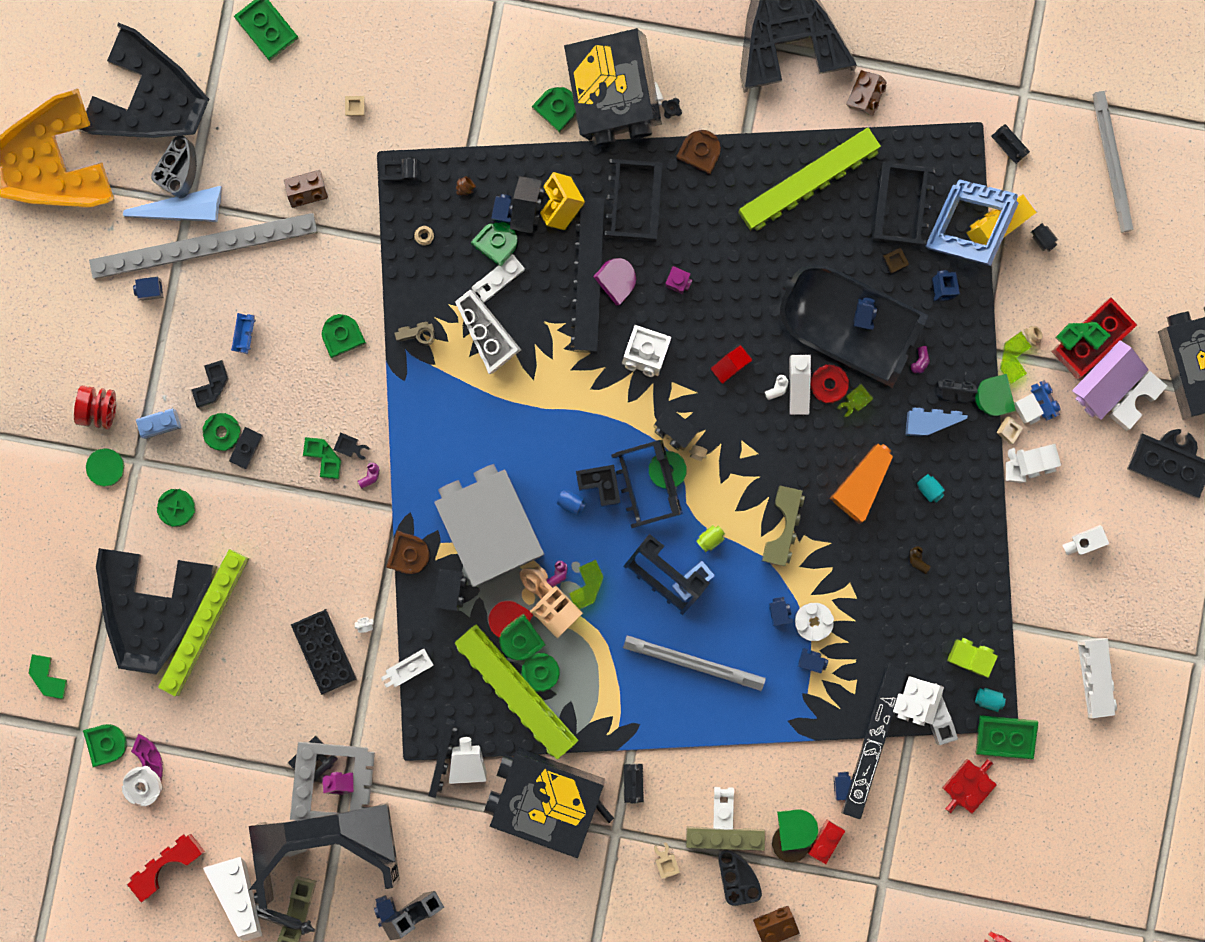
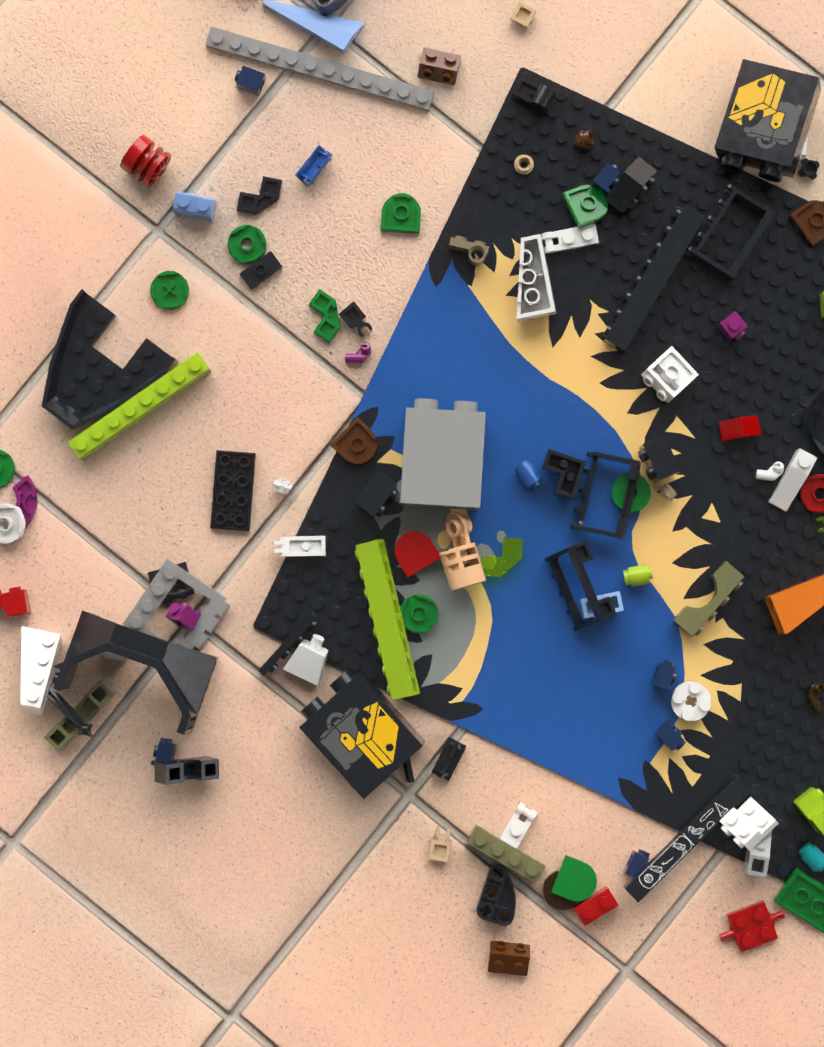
camera: 25 degrees right, 0 degrees up
(105, 467) = (125, 220): green tile -> none
(520, 639) = (416, 574): green tile -> none
(556, 107) = (704, 112): green tile -> none
(560, 574) = (483, 535): magenta arm -> none
(563, 202) = (667, 199): yellow brick -> none
(617, 279) = (677, 296): tile -> none
(733, 675) = (562, 680): light grey piece -> none

